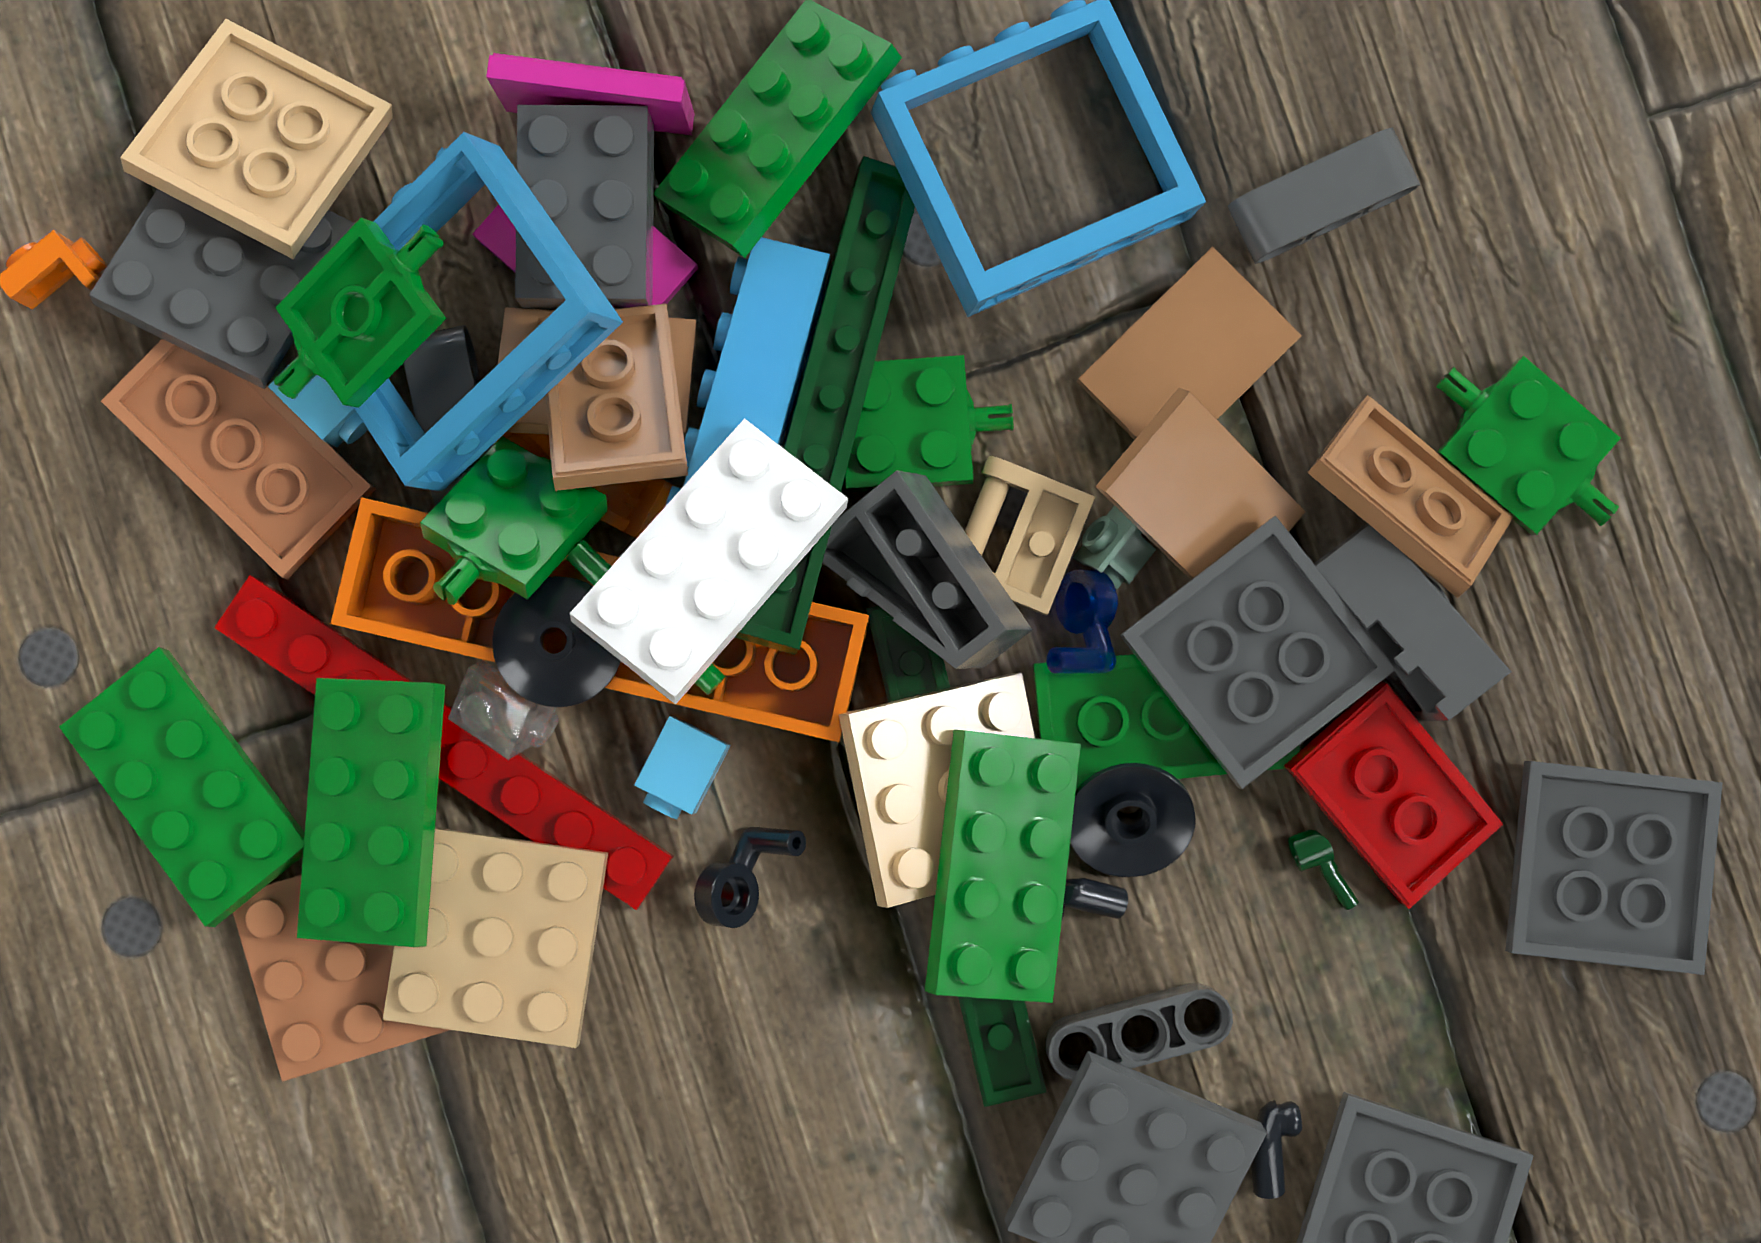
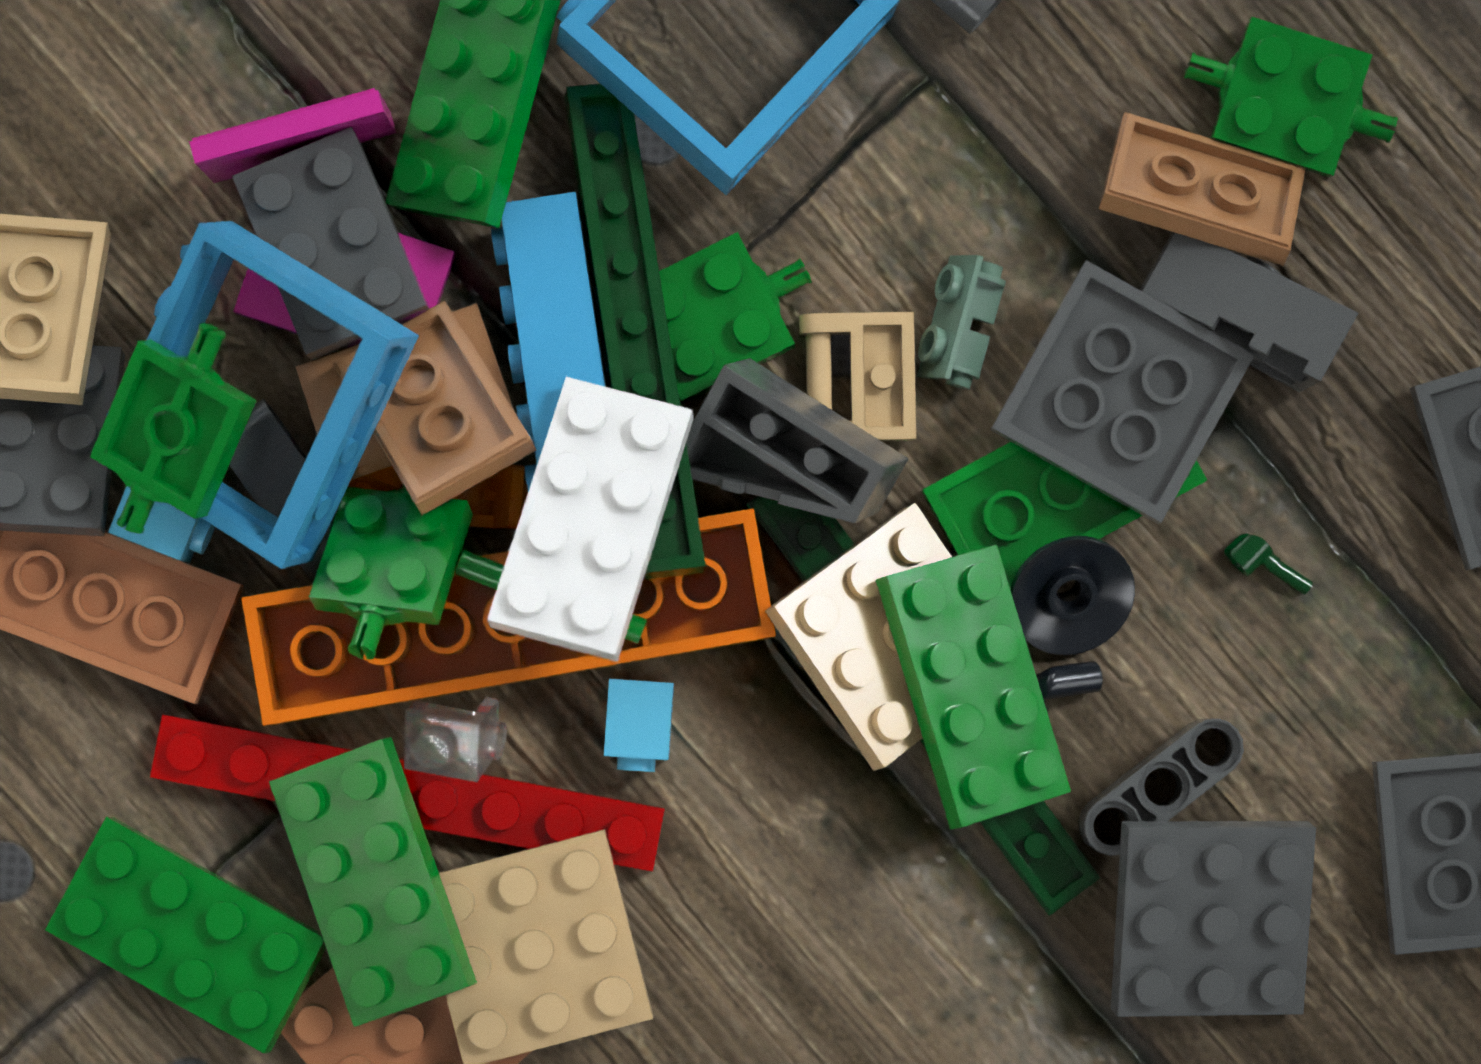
camera: 30 degrees left, 0 degrees up
(531, 670) = (471, 689): black dish -> none
(729, 891) = (731, 817): black plate -> none
(1086, 607) = (950, 416): clear blue plate -> none
(1194, 486) = (1001, 265): medium nougat tile -> none
(1201, 336) = (945, 147): medium nougat tile -> none
(1268, 1163) = (1329, 853): black arm -> none
(1394, 794) = (1302, 469): red tile -> none

